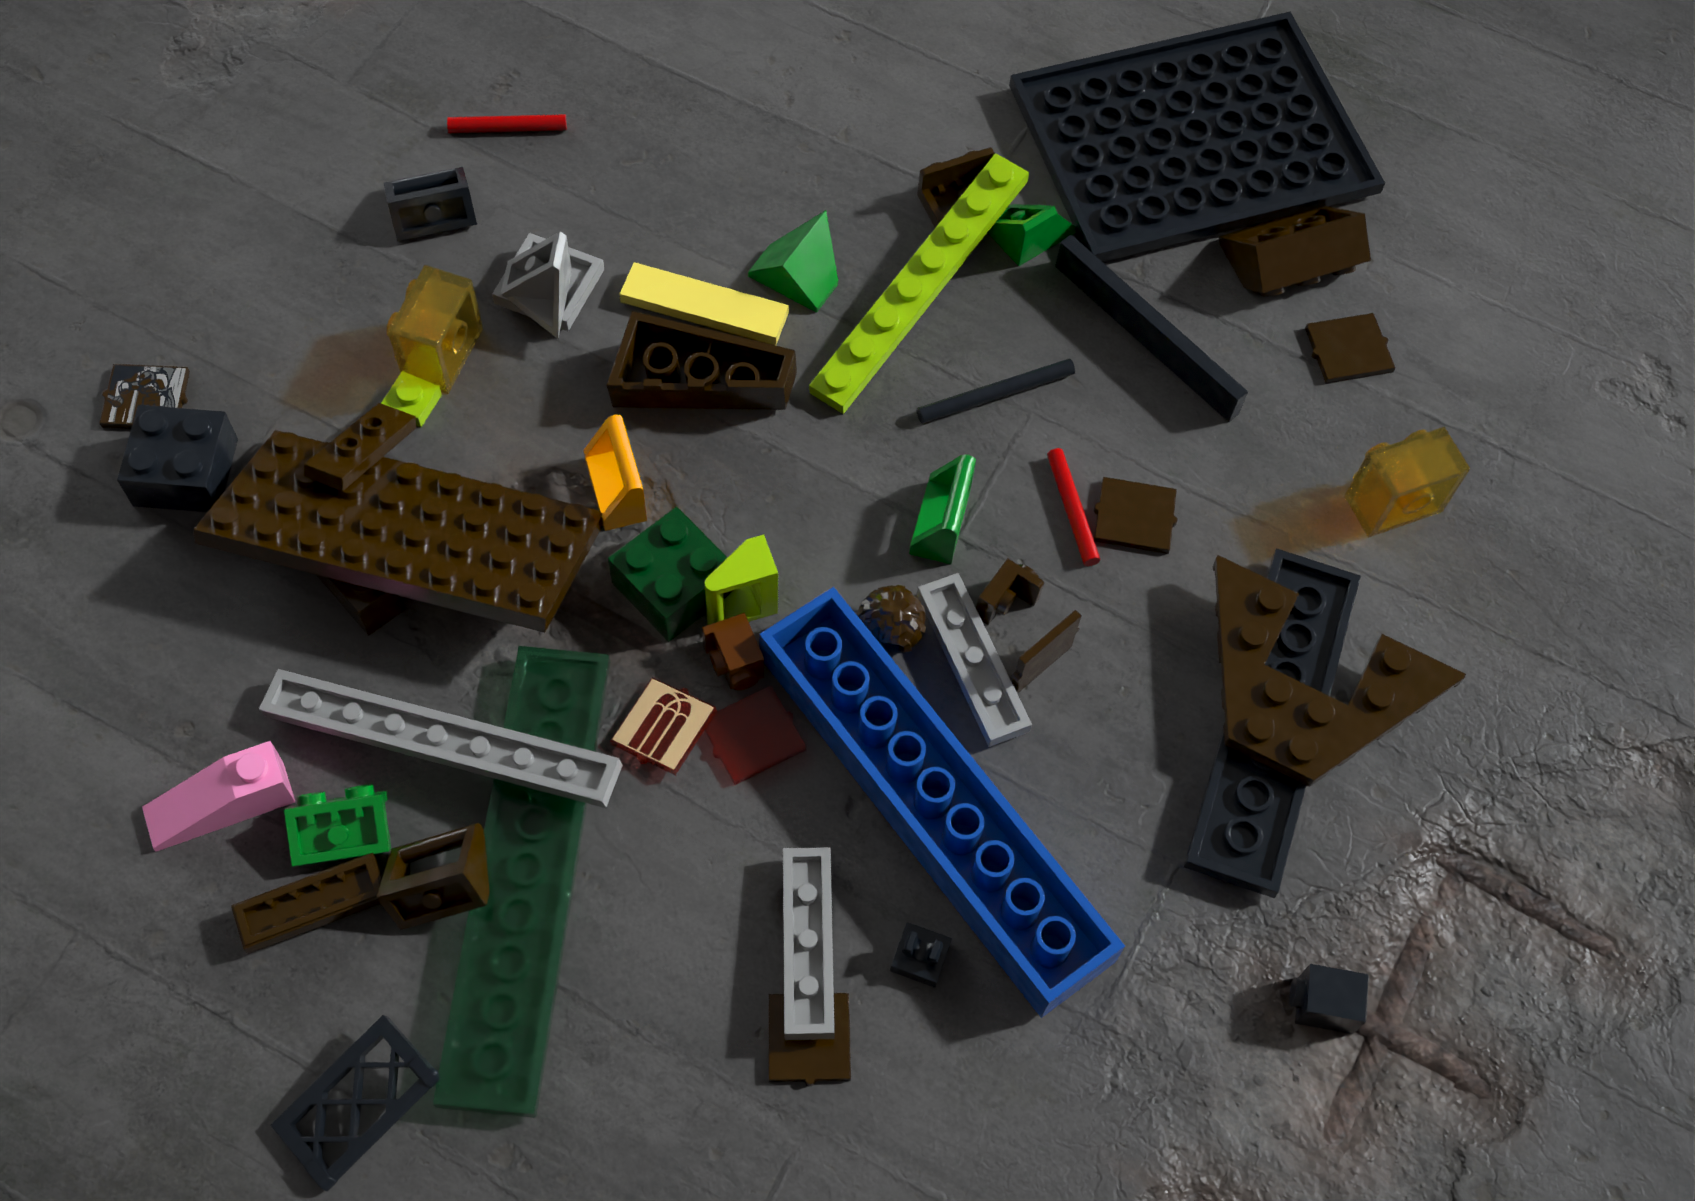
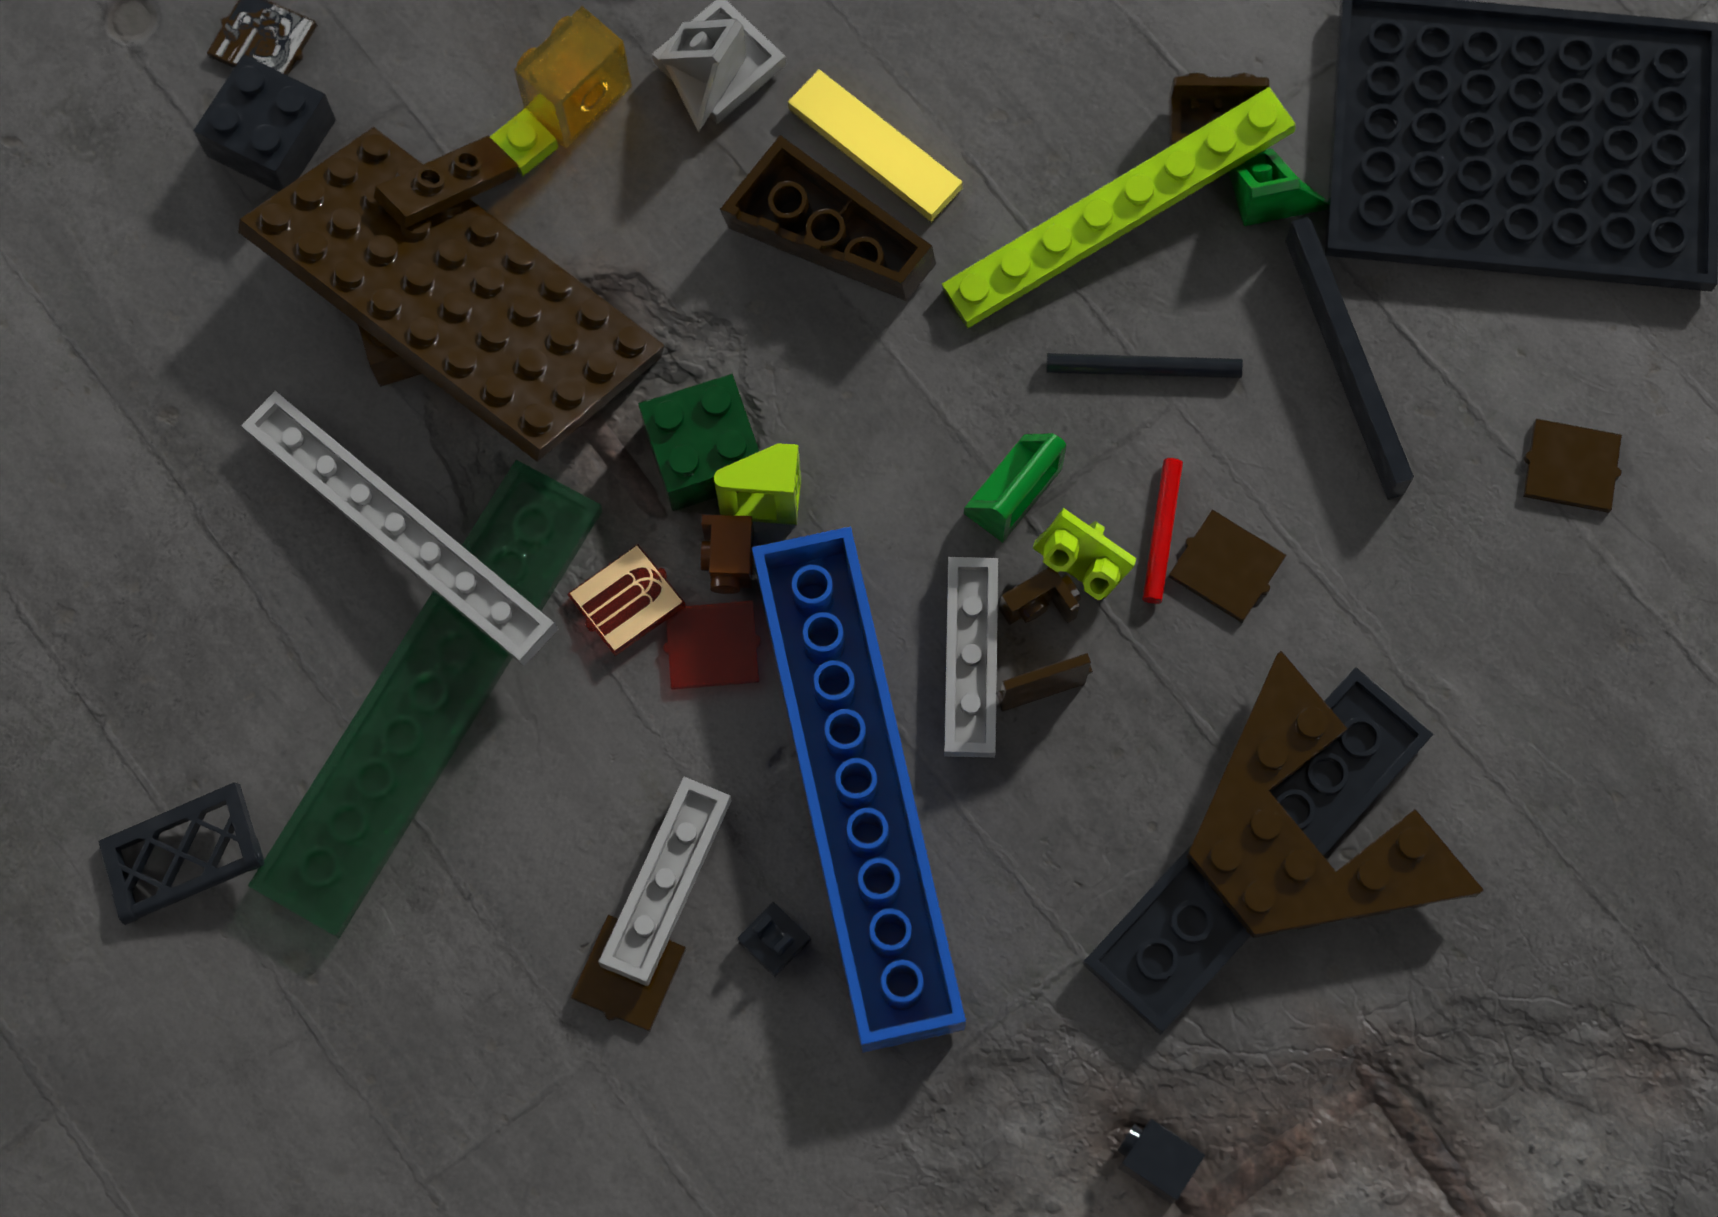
camera: 30 degrees right, 10 degrees up
(220, 796) = (173, 500): bright pink slope -> none
(308, 903) = (215, 642): dark brown plate -> none
(337, 826) = (269, 574): green bracket -> none
(437, 891) = (335, 683): dark brown tile -> none
(615, 475) = (692, 311): light orange tile -> none
(800, 264) = (998, 138): green slope -> none
(894, 616) = (904, 580): dark brown piece -> none
(1026, 542) = (1084, 553): none -> lime hips
(1298, 249) = (1569, 326): dark brown slope -> none
(1406, 480) = (1537, 649): clear yellow brick -> none

